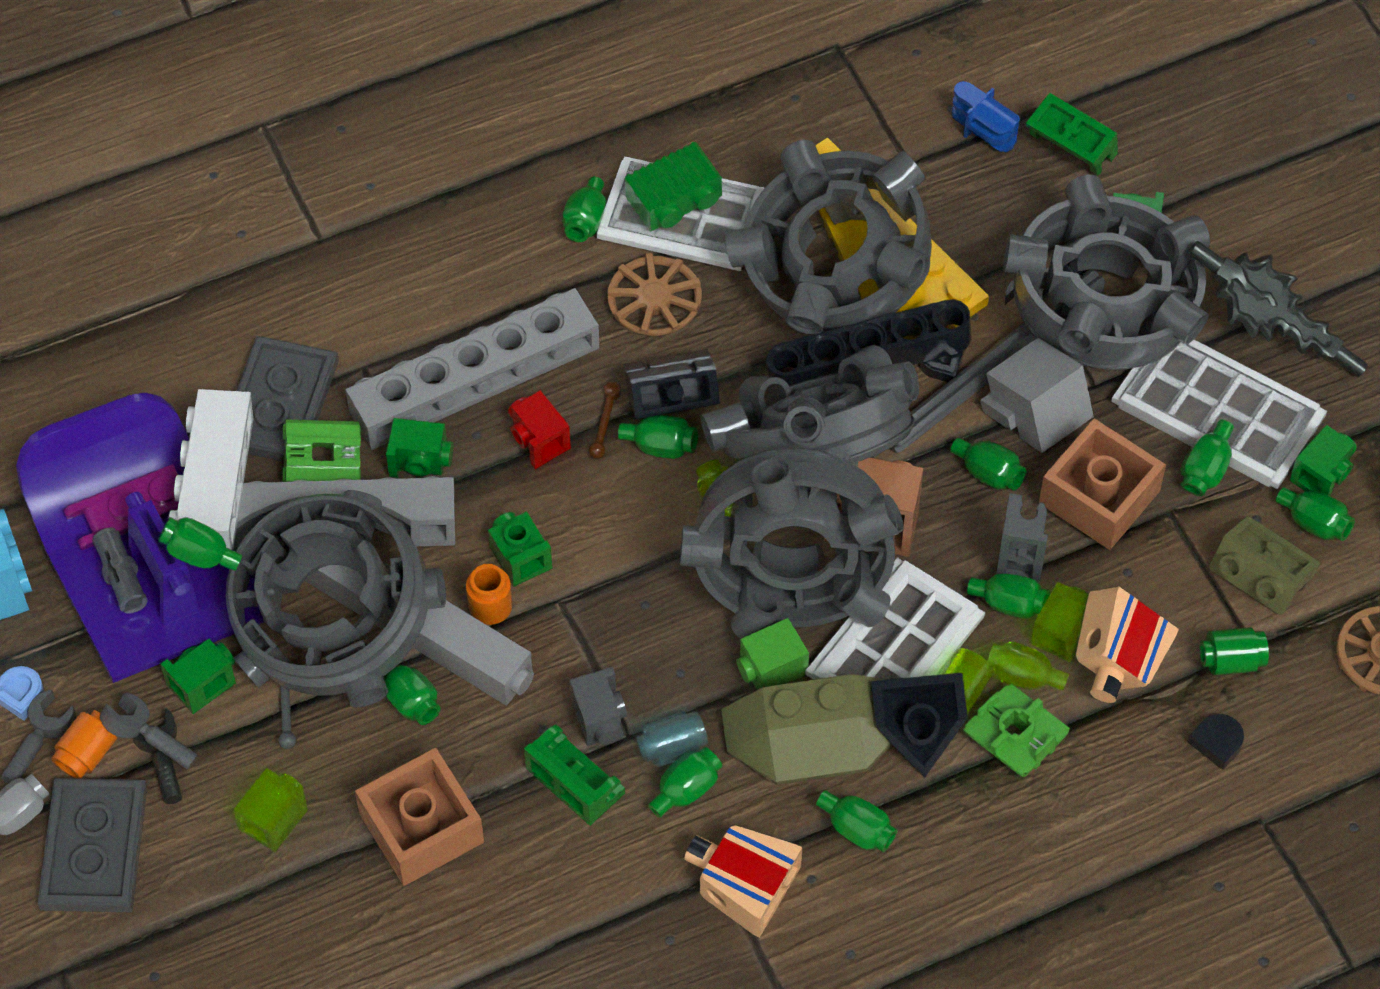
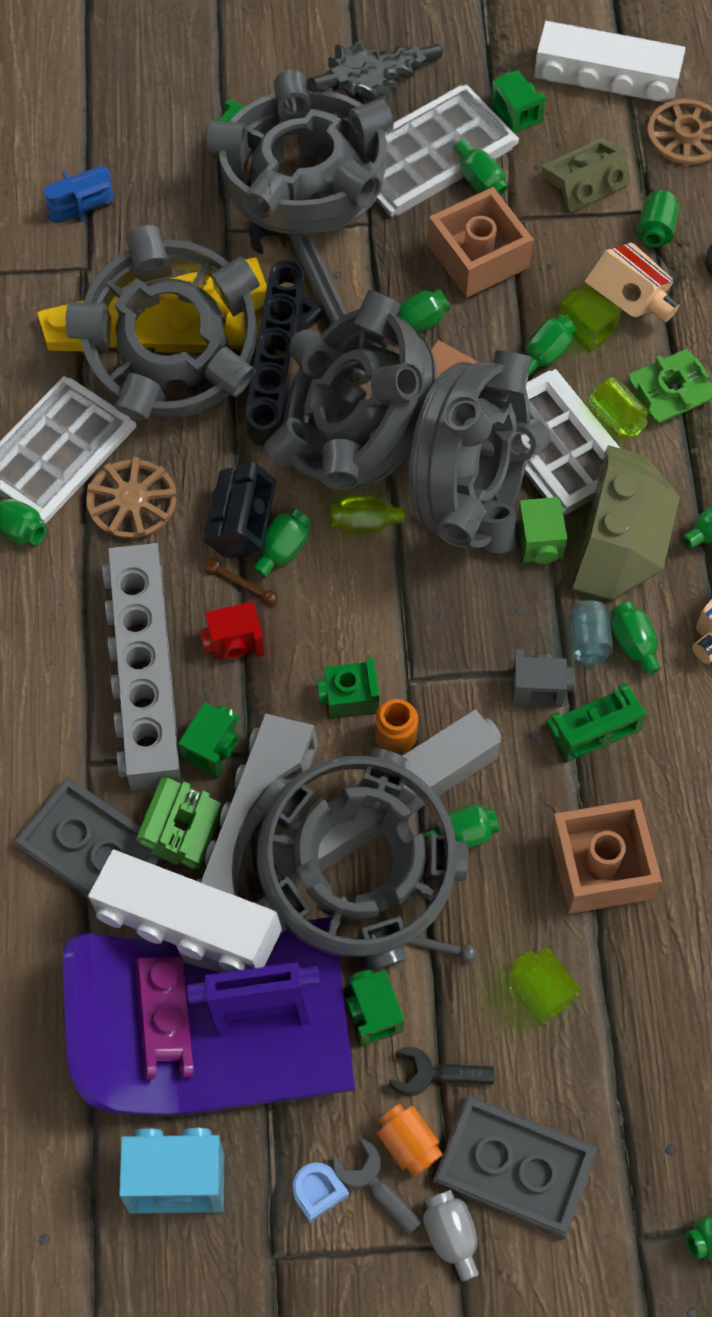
camera: 70 degrees left, 5 degrees up
(119, 570) = (238, 1044): dark grey pin -> none
(136, 722) = (413, 1079): dark grey piece -> none
(197, 544) = (283, 943): green plant -> none
(673, 187) = (38, 436): green brick -> none
(920, 715) = (648, 433): black slope -> none
(1022, 541) = (514, 314): dark grey hinge -> none
(1024, 667) = (618, 358): clear neon green plant -> none
(1039, 394) = (374, 252): light grey plate -> none
(1074, 132) = (131, 137): green hinge -> none
(1318, 513) = (556, 124): green plant -> none

